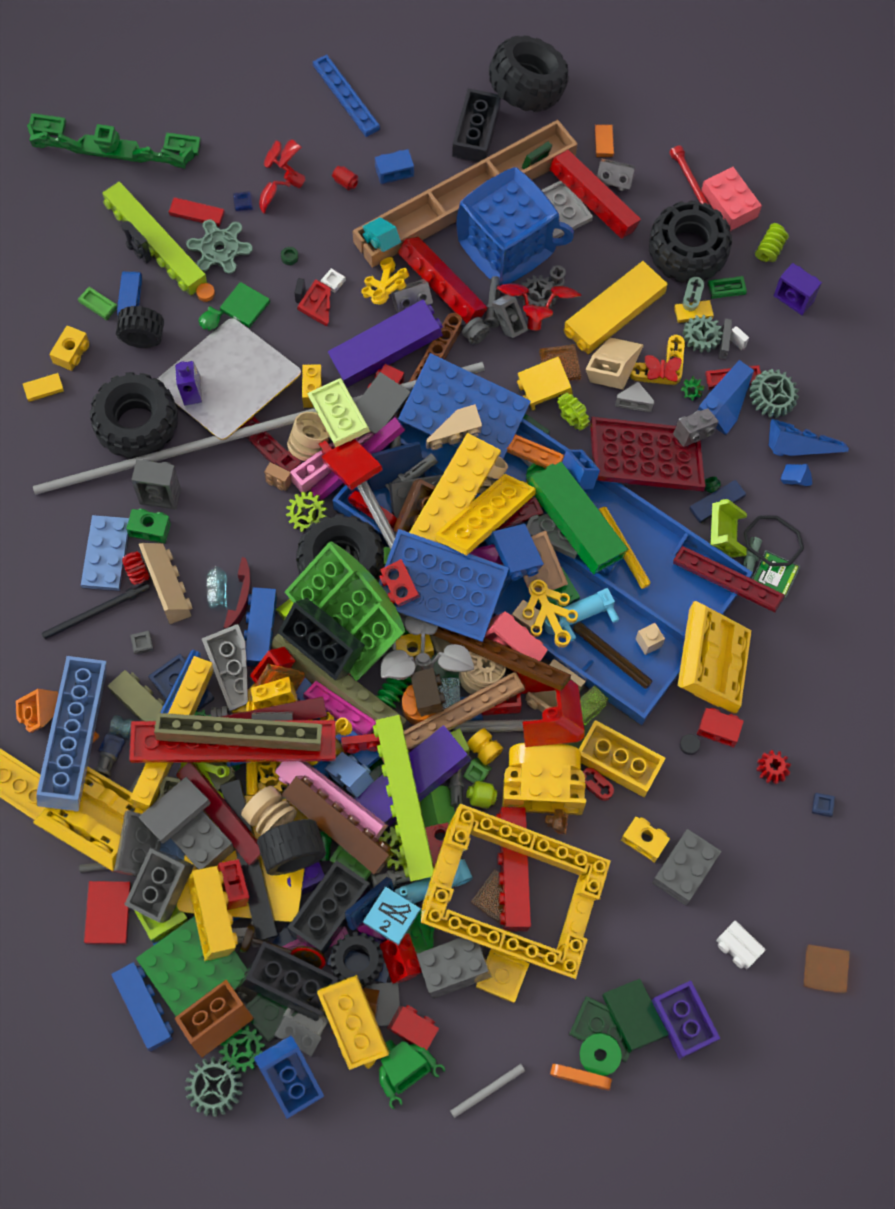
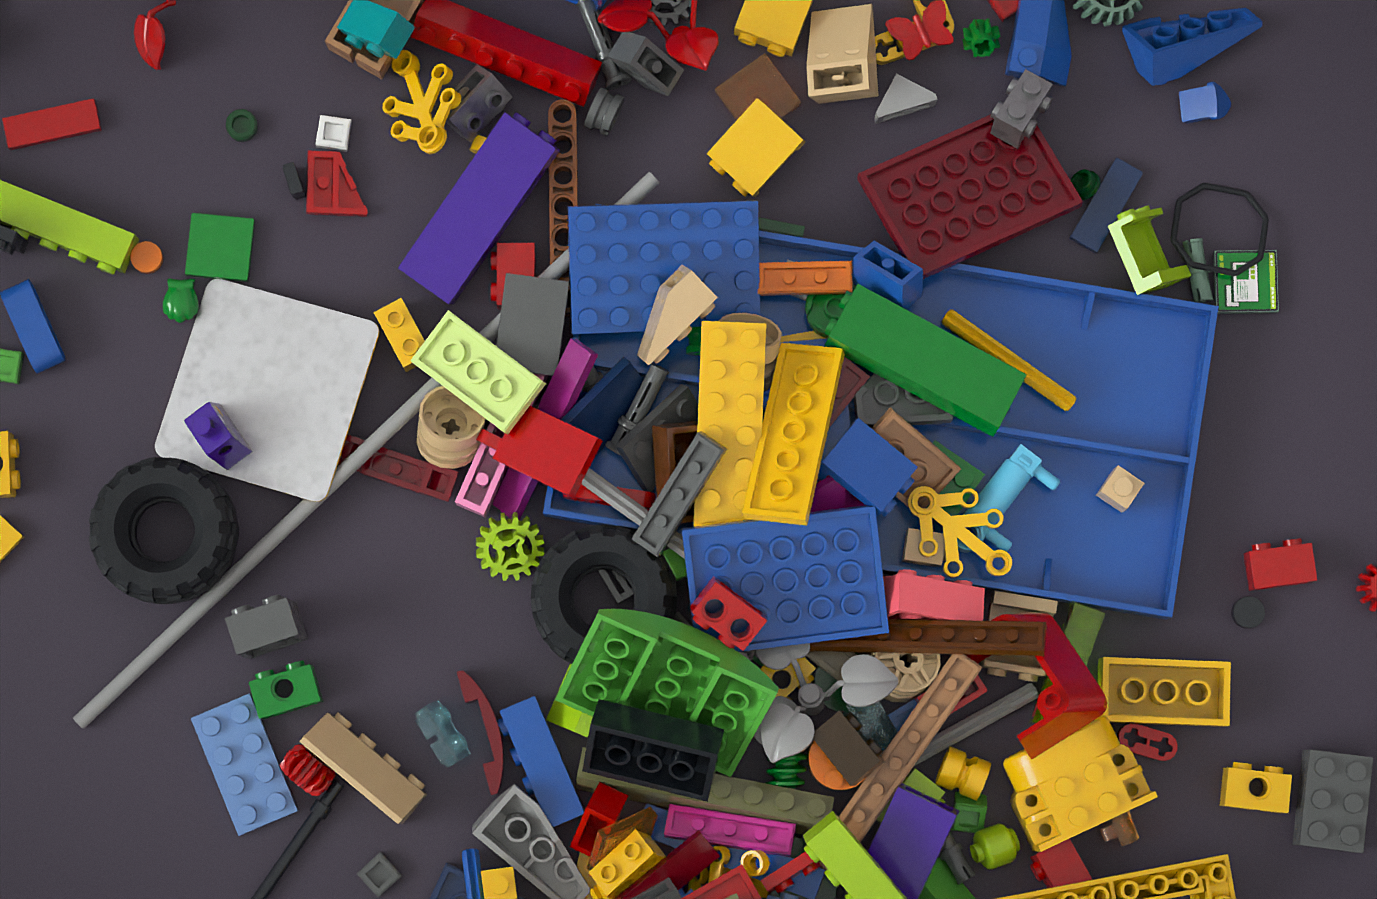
camera: 30 degrees left, 15 degrees up
(140, 327) = (87, 379): black tyre -> none
(215, 237) = (109, 154): sand green plate -> none
(242, 201) = (113, 66): clear blue tile -> none
(278, 477) = (435, 512): medium nougat piece -> none
(408, 514) = (679, 493): none -> dark grey tile
(573, 411) = (824, 175): lime gear -> none
(612, 655) = (1077, 540): dark brown axle -> none
(714, 658) = (1227, 472): yellow piece -> none
(729, 579) = (1188, 336): dark red tile -> none

